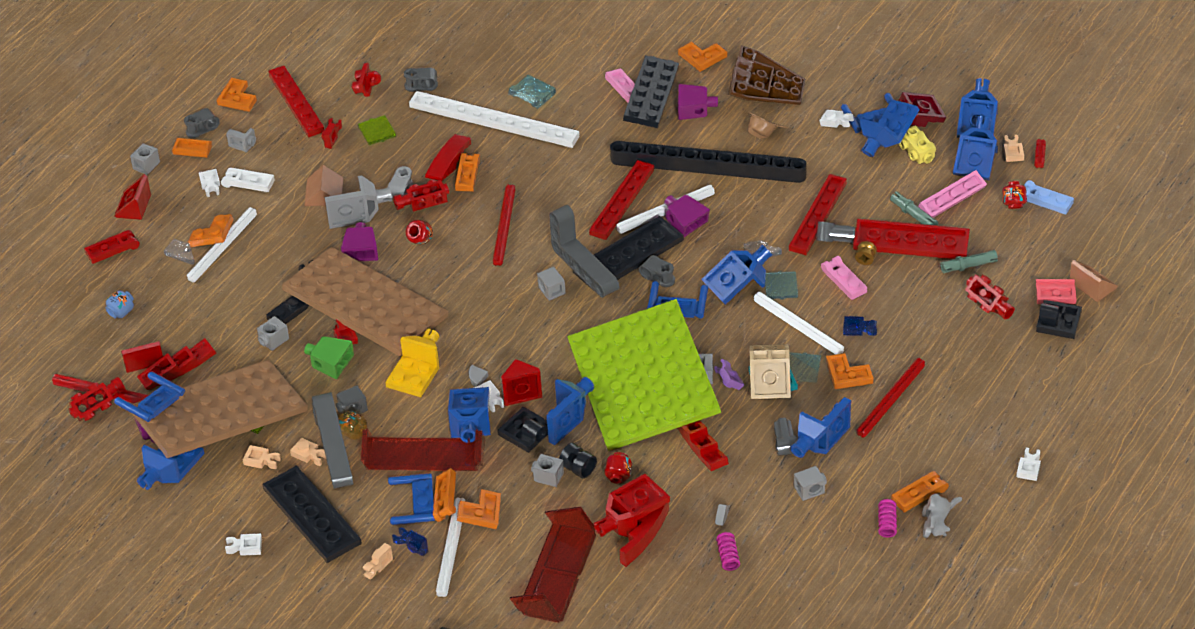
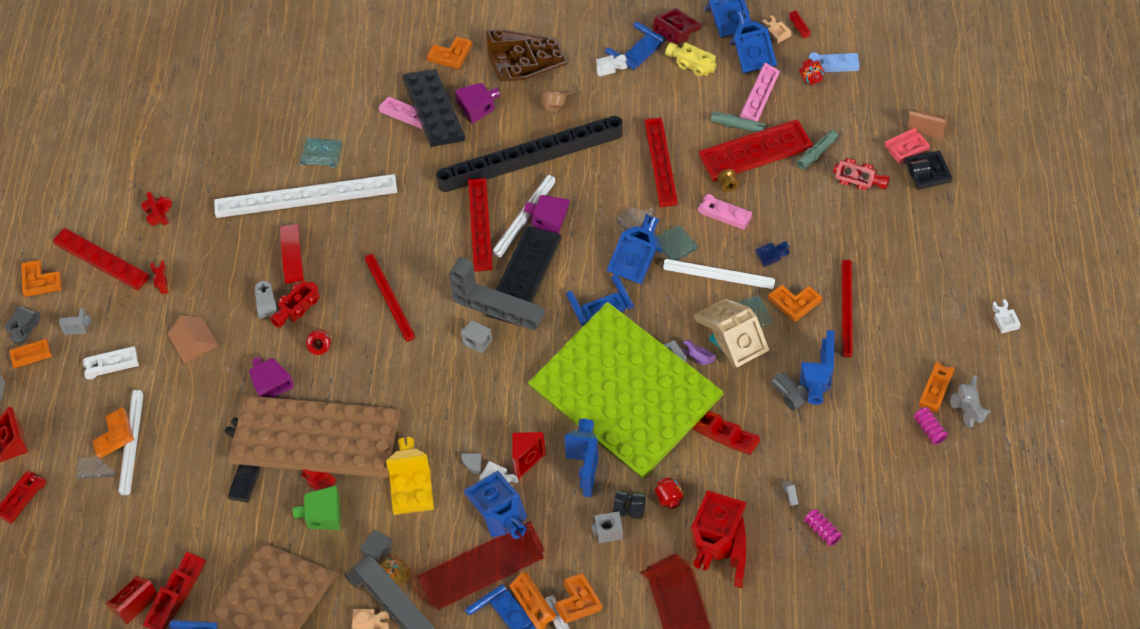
camera: 30 degrees left, 10 degrees up
(119, 304) = (71, 555): medium blue head -> none
(210, 181) = (72, 380): white plate -> none
(272, 333) = (246, 506): light grey brick -> none
(356, 206) = (243, 342): light grey plate -> none
(376, 130) = (200, 254): clear neon green piece -> none
(422, 79) = (210, 184): dark grey piece -> none
(467, 172) = (319, 260): orange plate -> none
(524, 429) = (557, 495): black plate -> none
(658, 270) = (561, 279): dark grey piece -> none
(809, 483) = (843, 425): light grey brick -> none
(830, 232) = (686, 174): dark grey piece -> none
(890, 127) = (665, 53): blue plate -> none

